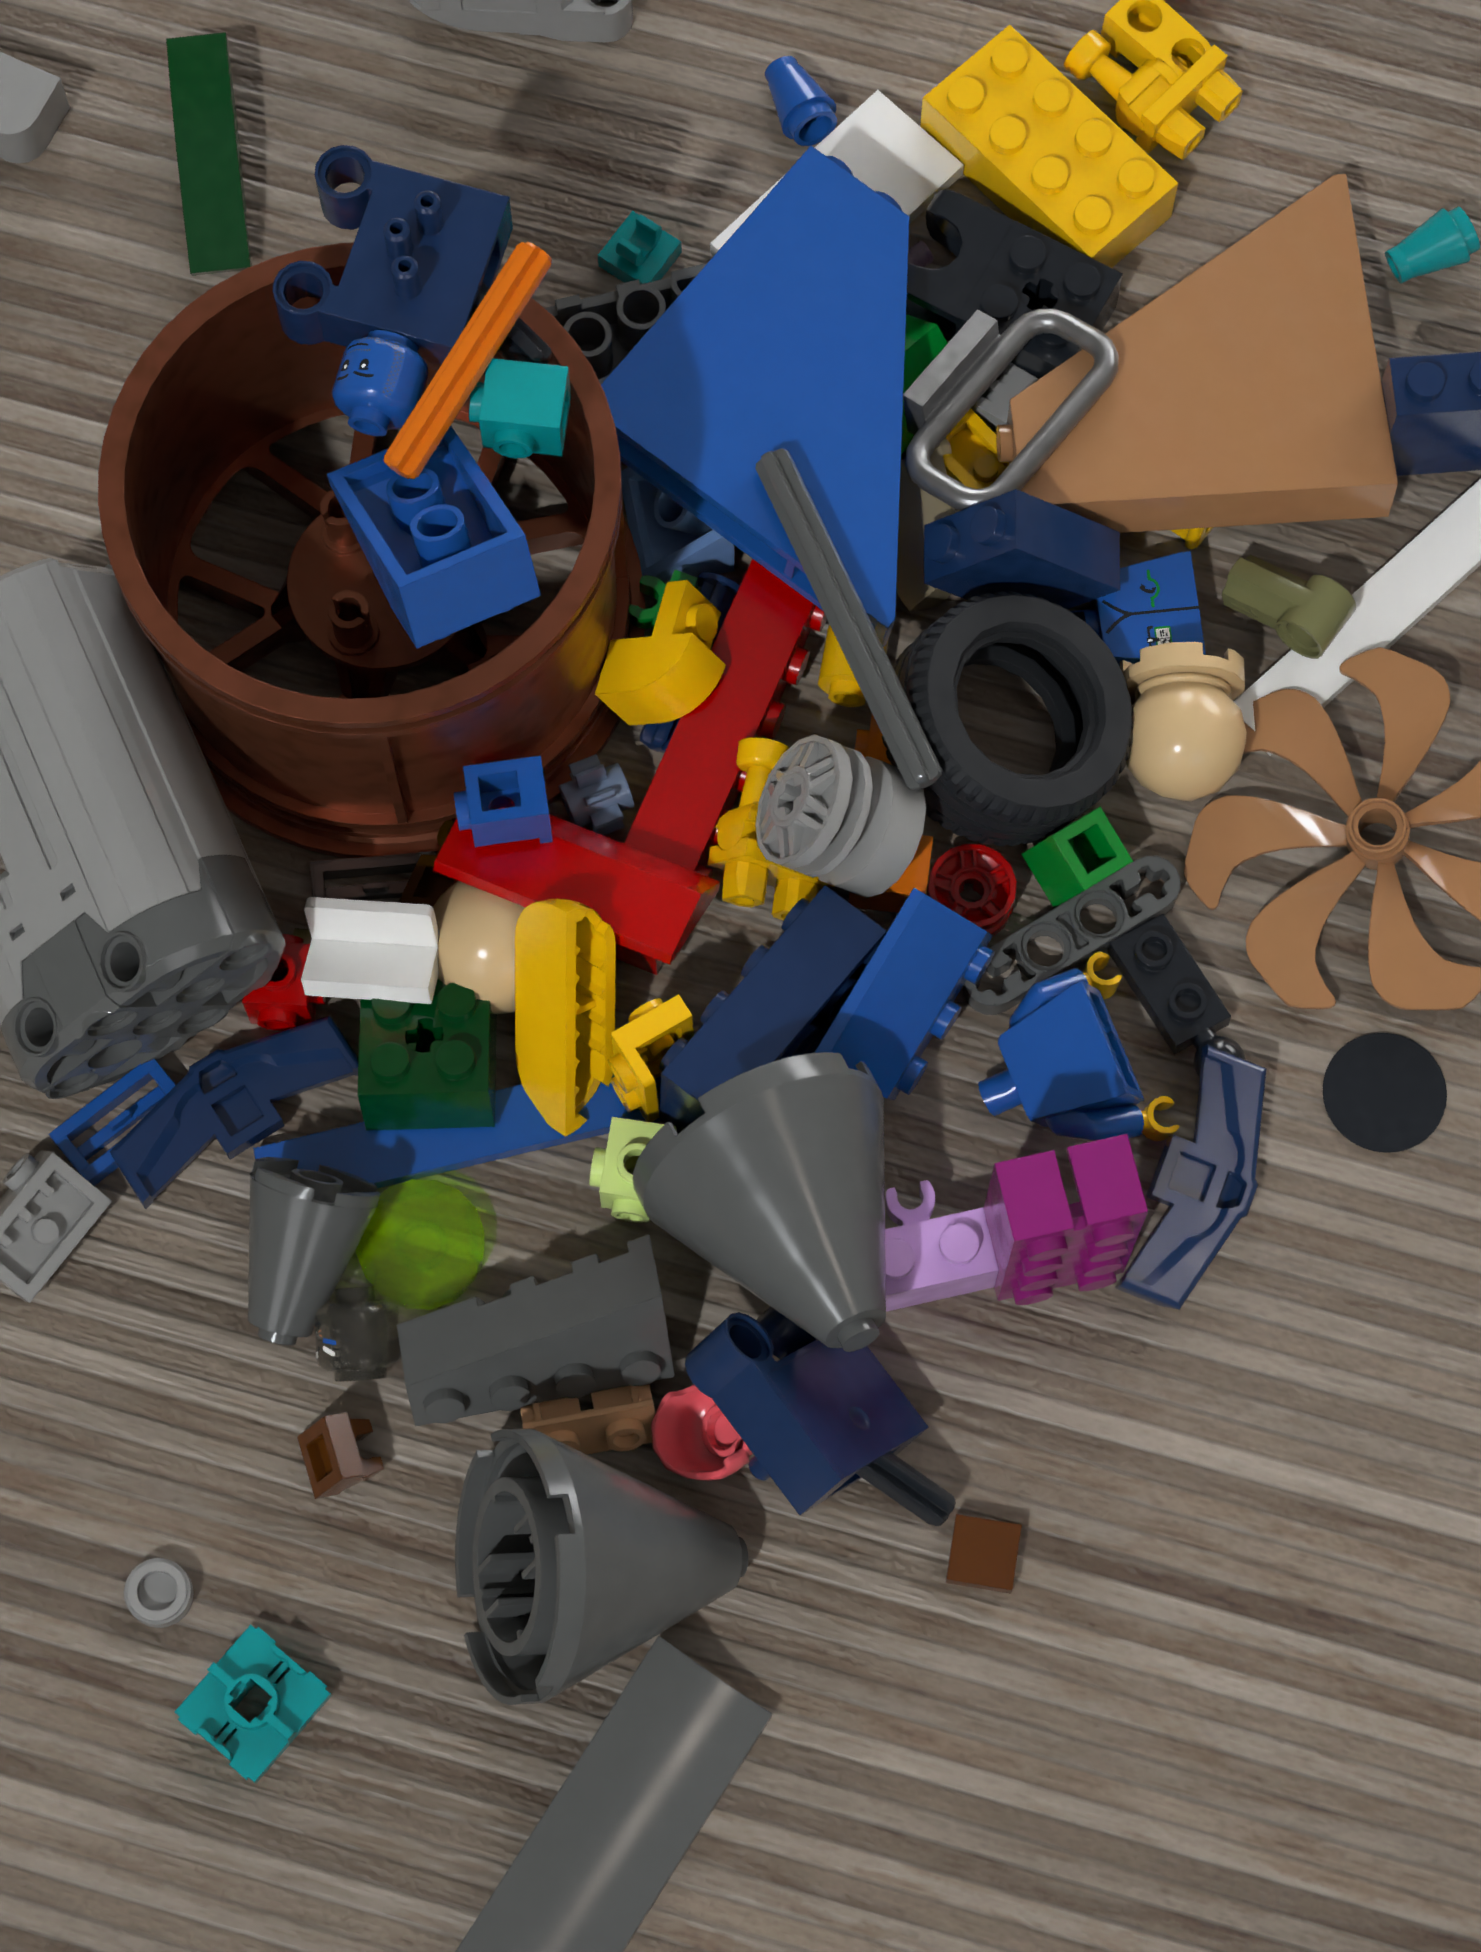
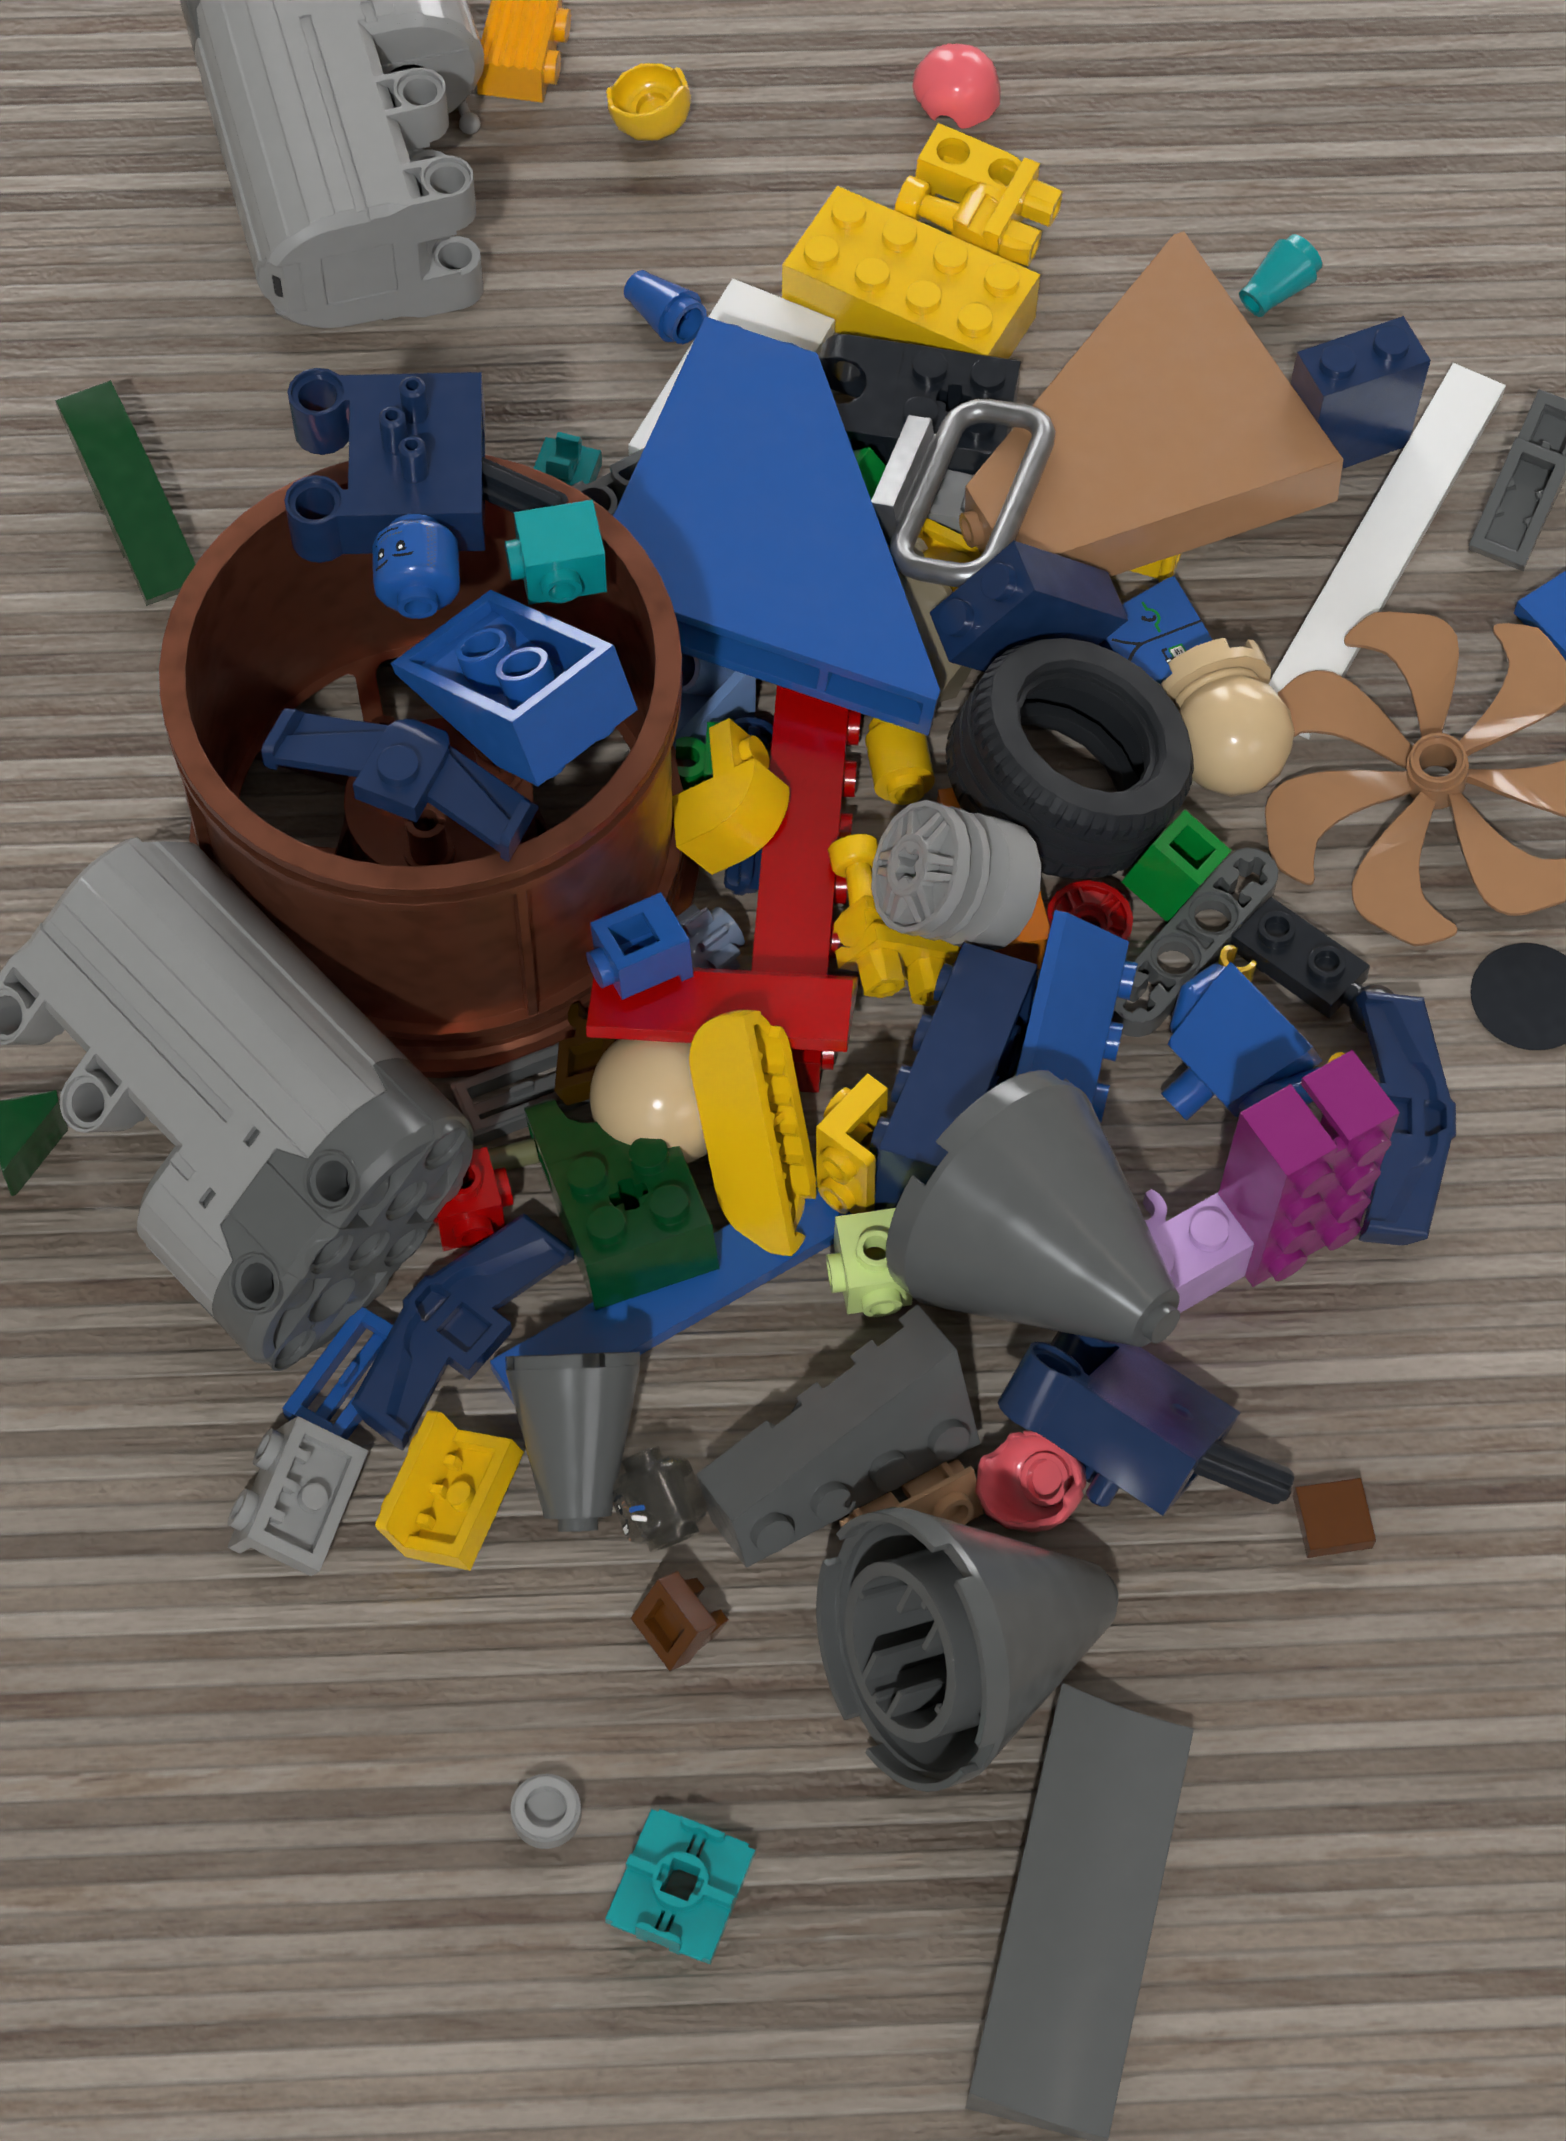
camera: 20 degrees left, 10 degrees down
(168, 1265) = (447, 1492): none -> yellow bracket
(302, 588) = (402, 771): none -> dark blue plate
(371, 950) = (550, 1128): white panel -> none
(422, 1244) = (690, 1399): clear neon green tile -> none
(467, 360) = (496, 519): orange axle -> none
(848, 620) = (902, 698): dark grey axle -> none
(1301, 611) = (1293, 601): olive piece -> none

